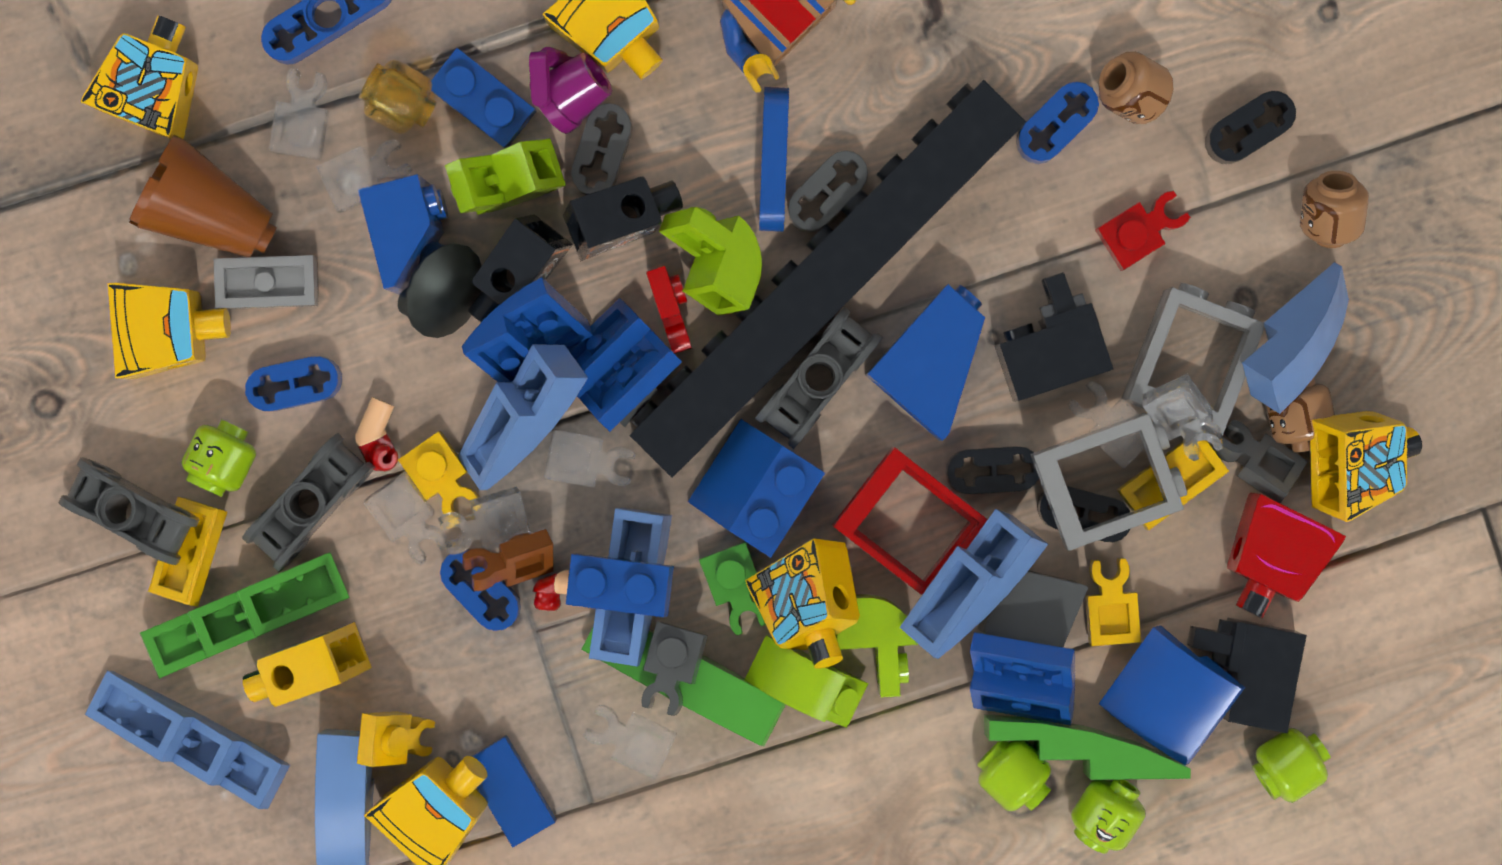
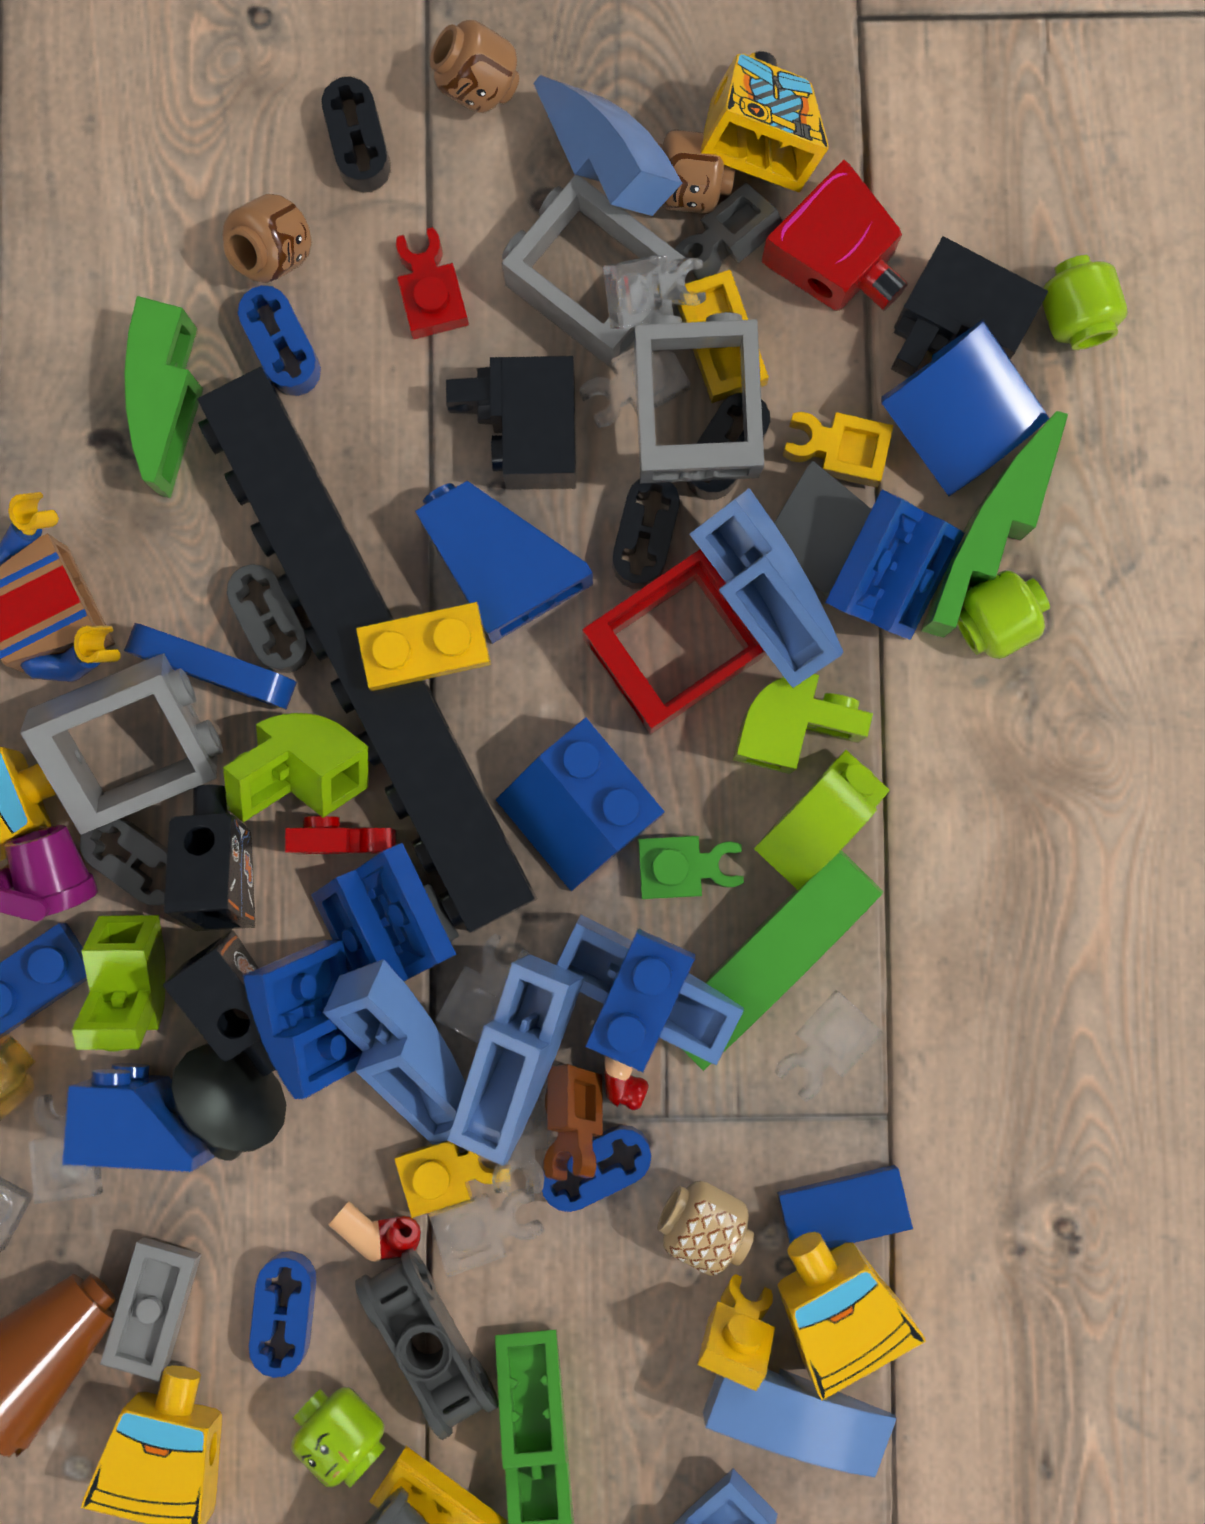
camera: 70 degrees left, 5 degrees down
(308, 667) = (621, 1409): yellow torso -> none
(463, 688) = (705, 1228): none -> tan head
(545, 502) = (515, 1057): none -> medium blue slope
(674, 657) = (748, 962): dark grey plate -> none
(720, 91) = (67, 770): none -> light grey window
(808, 599) = (727, 783): torso -> none
(836, 354) = (497, 727): dark grey piece -> none
(840, 328) = (423, 646): none -> yellow plate
(982, 42) = (160, 390): none -> bright green slope
(1108, 815) = (1080, 523): lime head -> none

